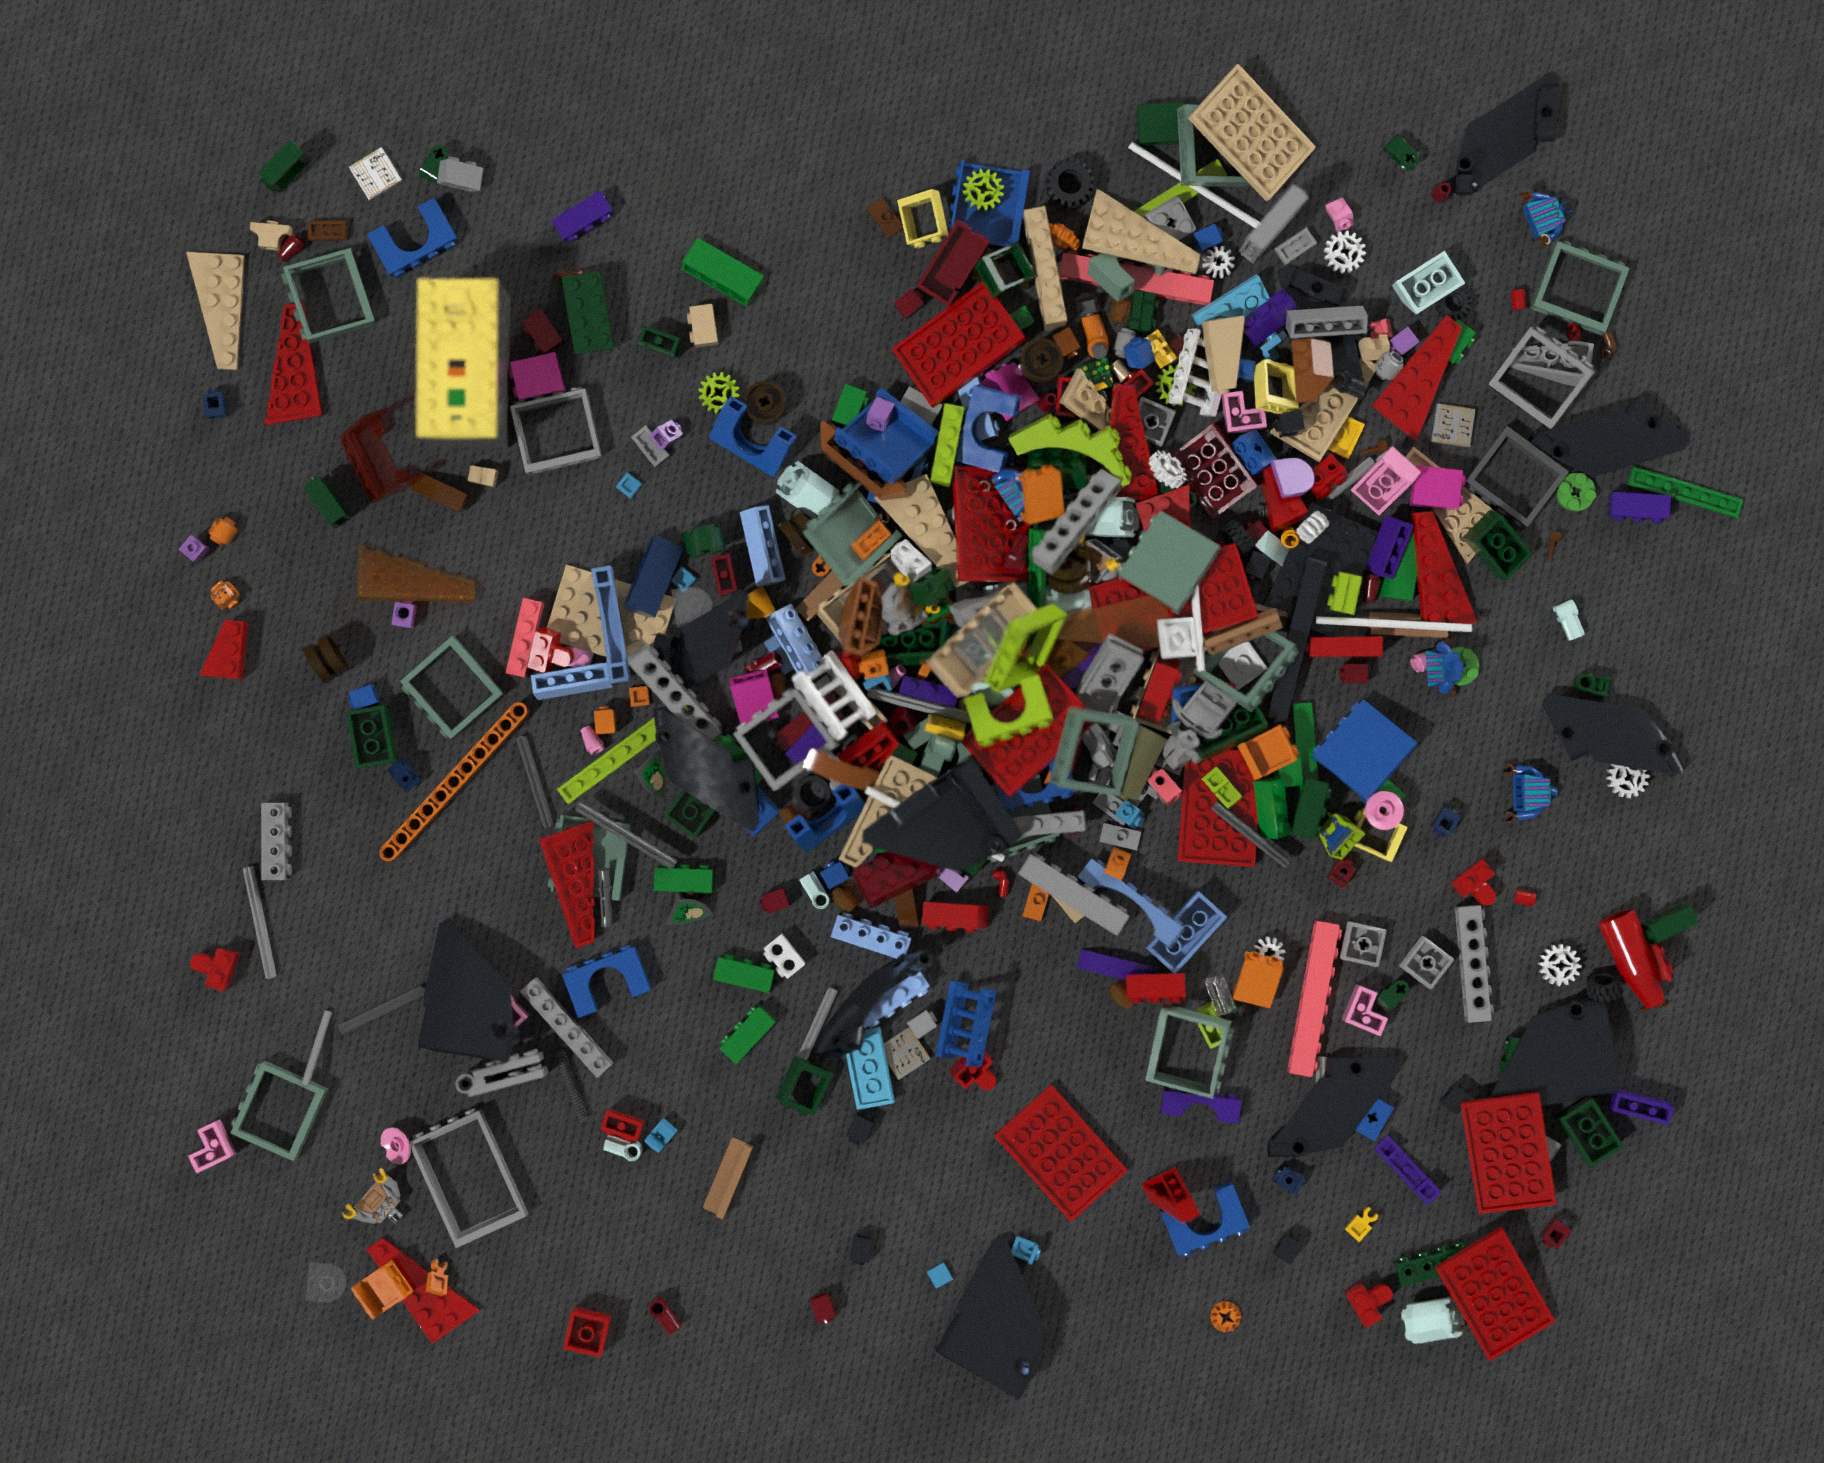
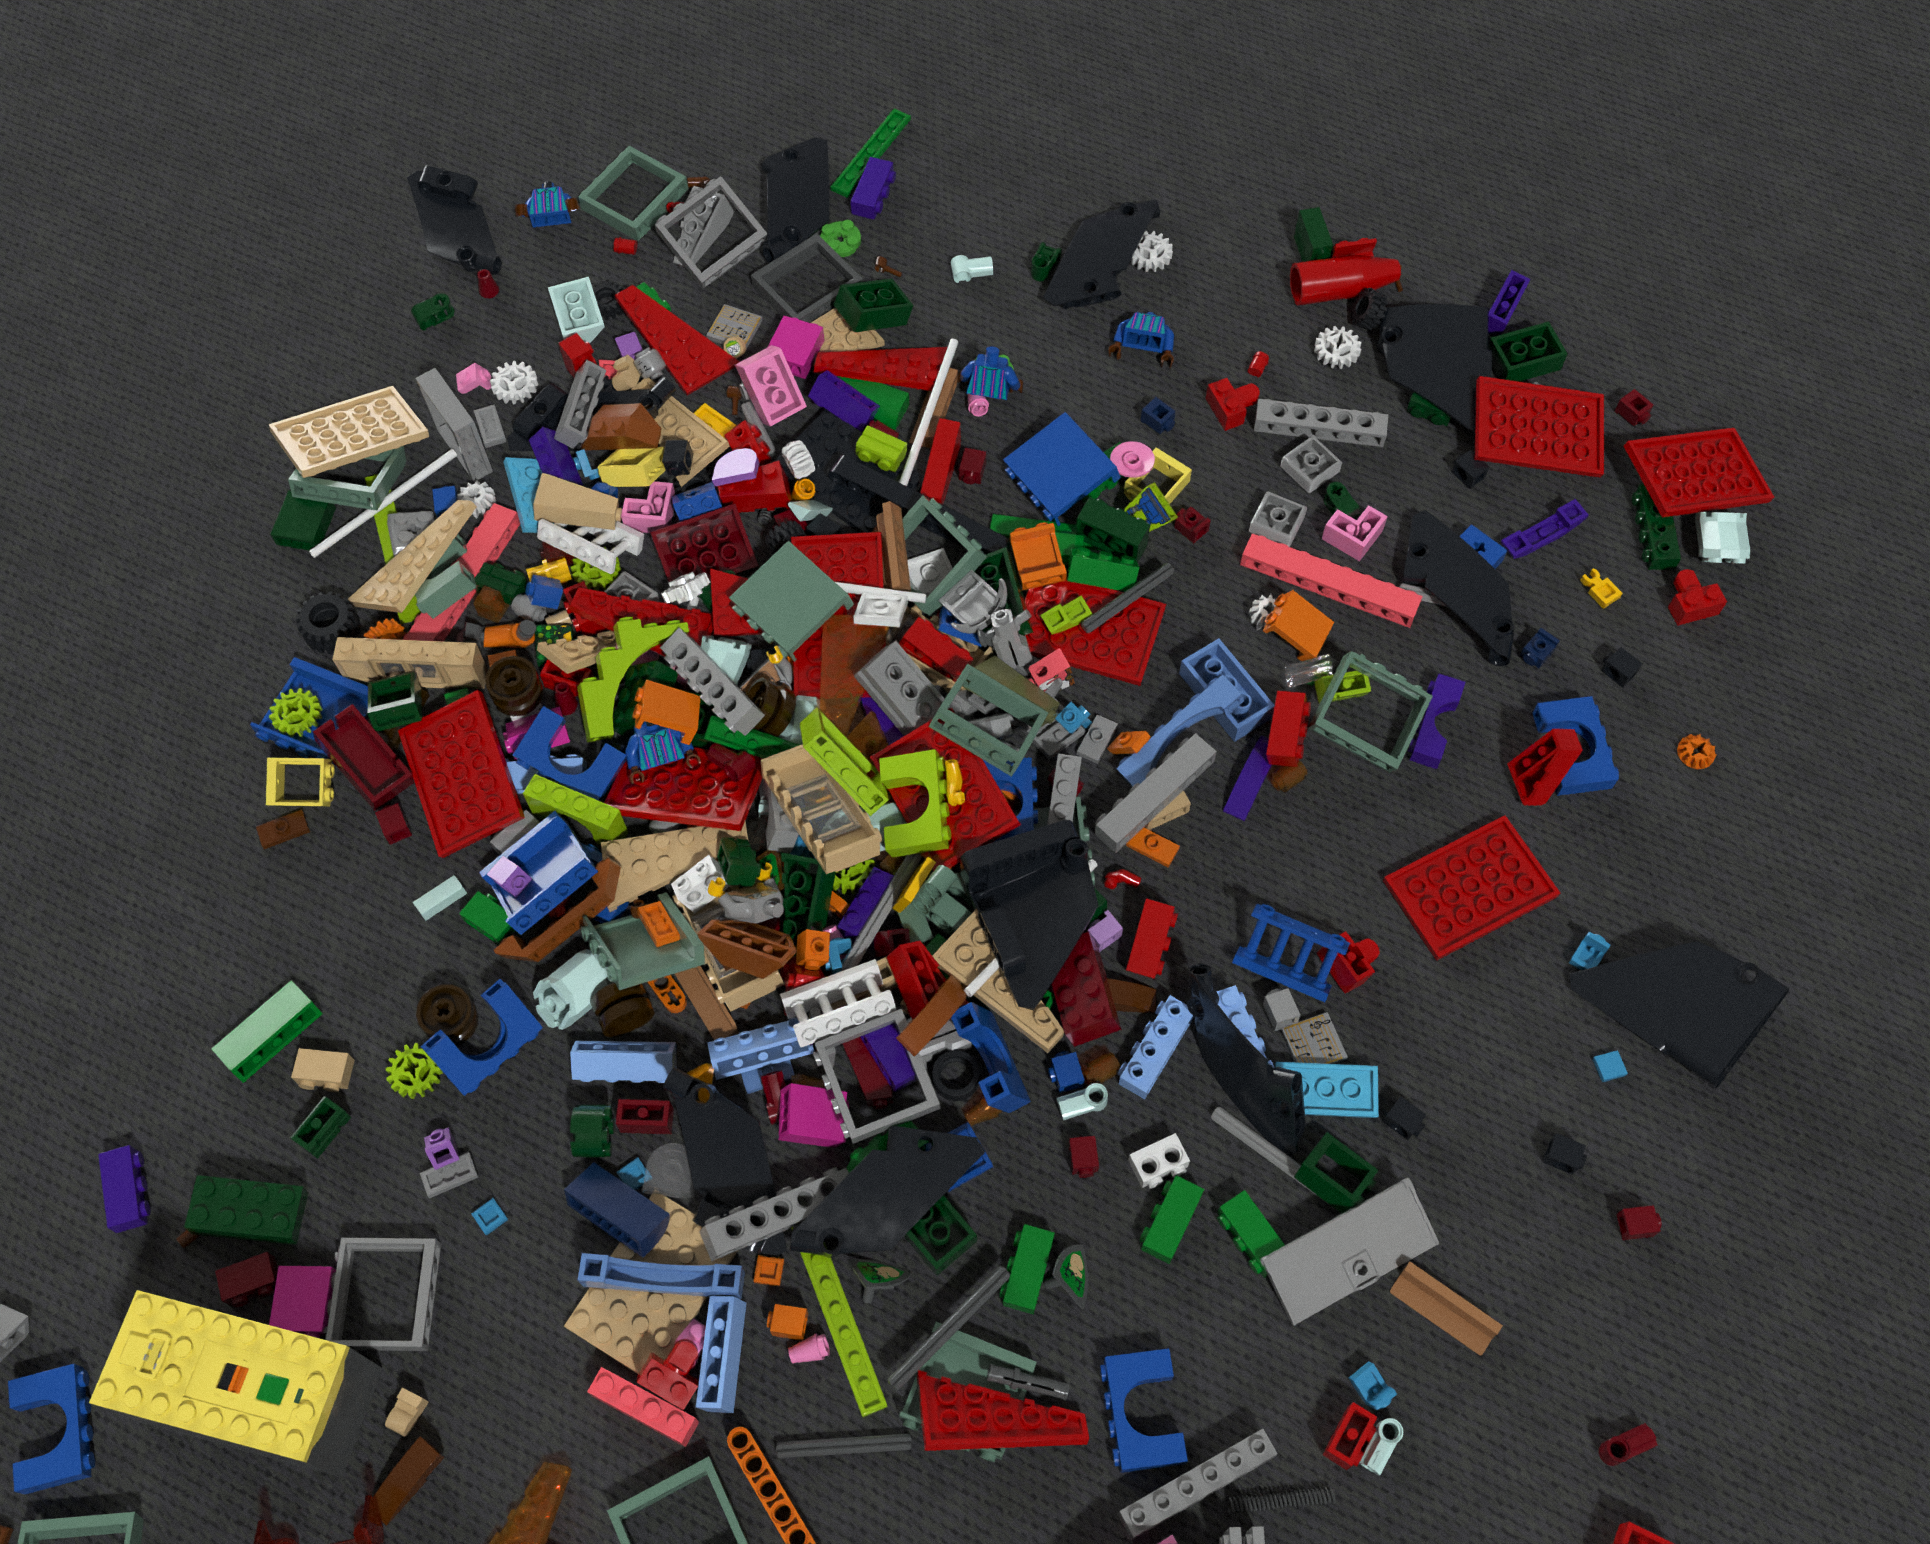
camera: 80 degrees left, 25 degrees down
(750, 1105) = (1350, 1251): none -> light grey door
(859, 360) = (439, 897): none -> light aqua slope
(1029, 738) = (954, 783): none -> yellow arm
(1378, 302) = (575, 353): none -> red brick
(1429, 433) = (735, 346): none -> tile

